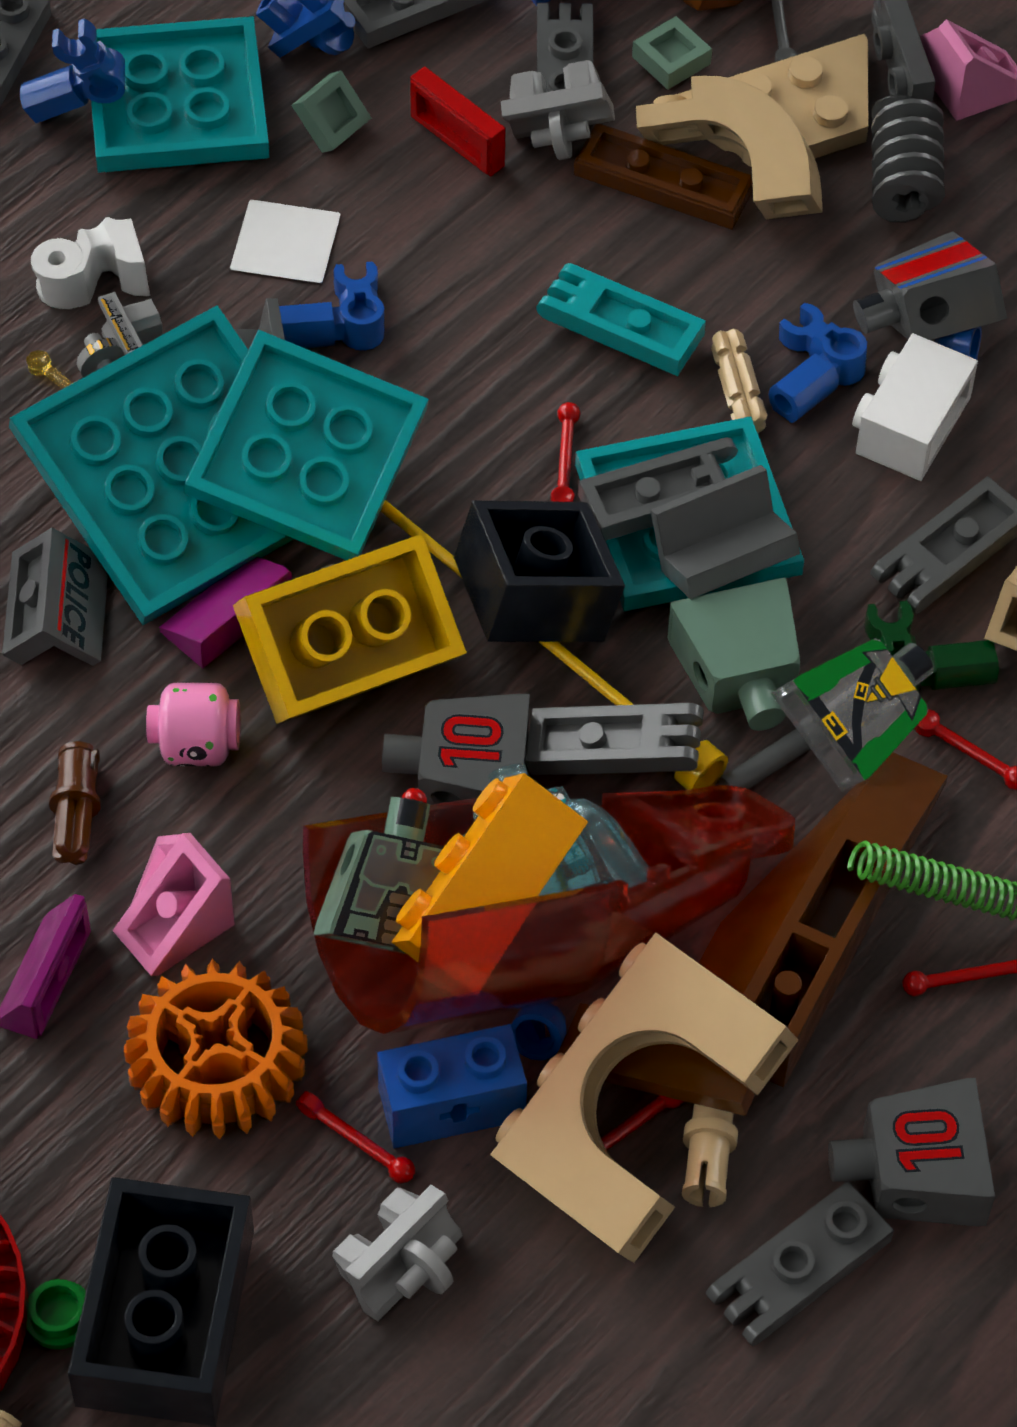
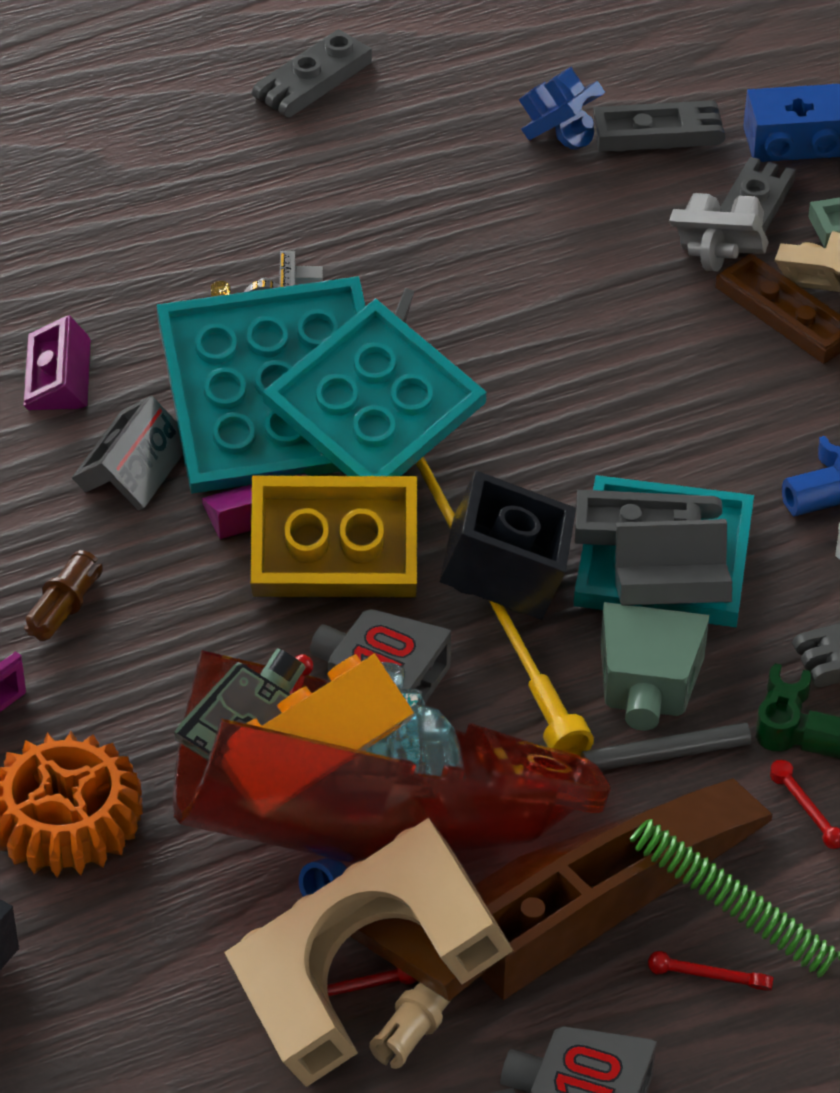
camera: 25 degrees right, 10 degrees down
(70, 269) = (277, 230): white leg -> none
(94, 75) = (366, 103): blue bar -> none
(177, 905) = (94, 694): bright pink slope -> none
(186, 96) = (429, 139): teal plate -> none
(194, 724) = (182, 569): bright pink head -> none
(285, 241) = (459, 266): white sticker -> none
(331, 111) = (541, 183): sand green plate -> none
(356, 321) = (477, 333): blue bar -> none
(400, 1168) = (159, 946): red hinge -> none
(405, 1256) = (120, 1002): light grey hips -> none
(451, 1085) = (224, 891): blue brick -> none
(457, 121) = (636, 218): red tile -> none
(568, 415) = (610, 452): red hinge -> none
(614, 739) = (505, 689): dark grey hinge -> none
(622, 318) = (691, 396): teal hinge -> none
(738, 377) = (764, 468): tan axle -> none
(857, 707) = (718, 728): torso -> none

